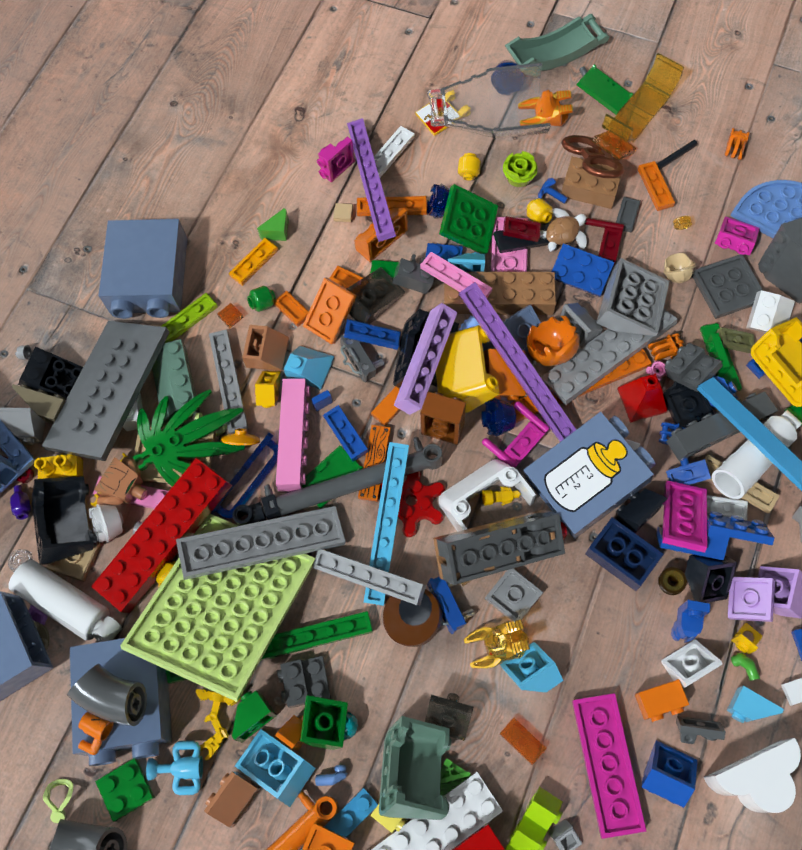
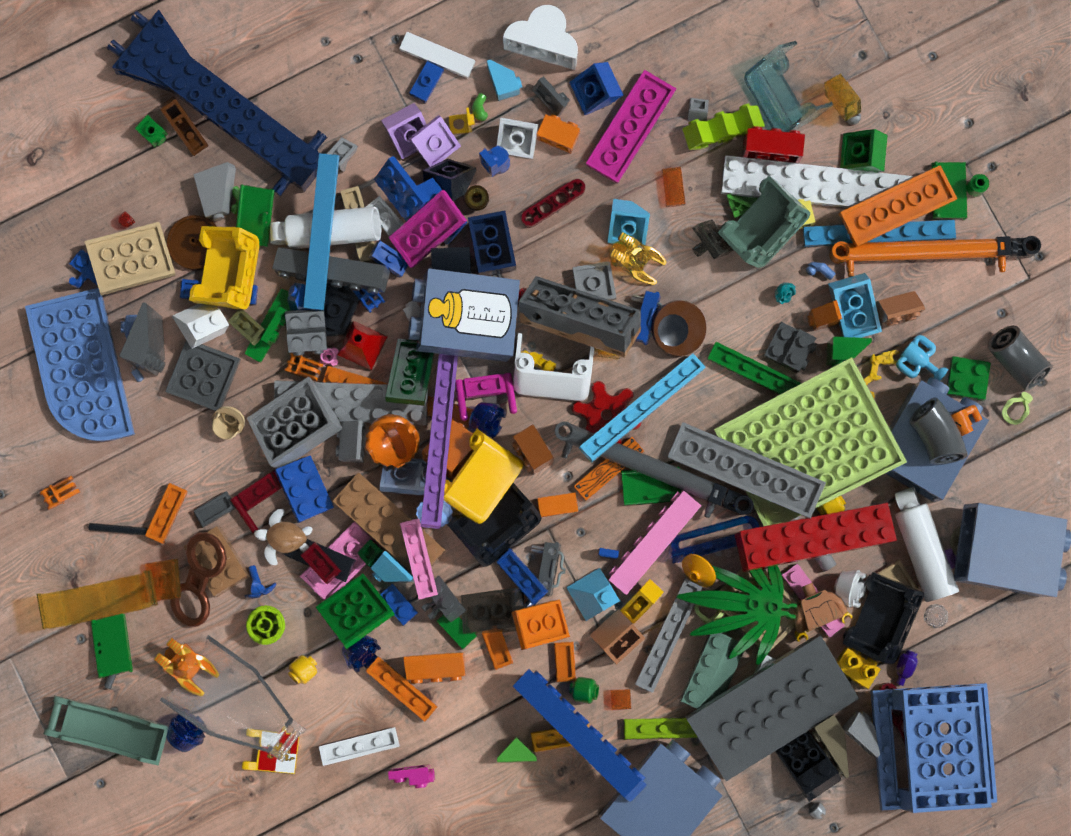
camera: 145 degrees left, 15 degrees up
(235, 255) = (583, 738): none -> blue brick
(324, 723) = (799, 303): green slope -> none
(343, 212) = (446, 720): tan tile -> none
(345, 433) = (612, 509): blue plate -> none
(369, 577) = (689, 377): light grey plate -> none
(371, 181) = (402, 722): medium lavender plate -> none
(425, 359) = (507, 503): lavender brick -> none
(494, 263) = (370, 553): none -> dark green plate
(539, 211) = (287, 571): yellow head -> none
(584, 392) = (409, 374): none -> dark green plate
(611, 636) = (554, 204): none -> dark red beam
(682, 222) = (182, 460): clear yellow tile -> none
(737, 236) = (152, 409): dark pink plate -> none

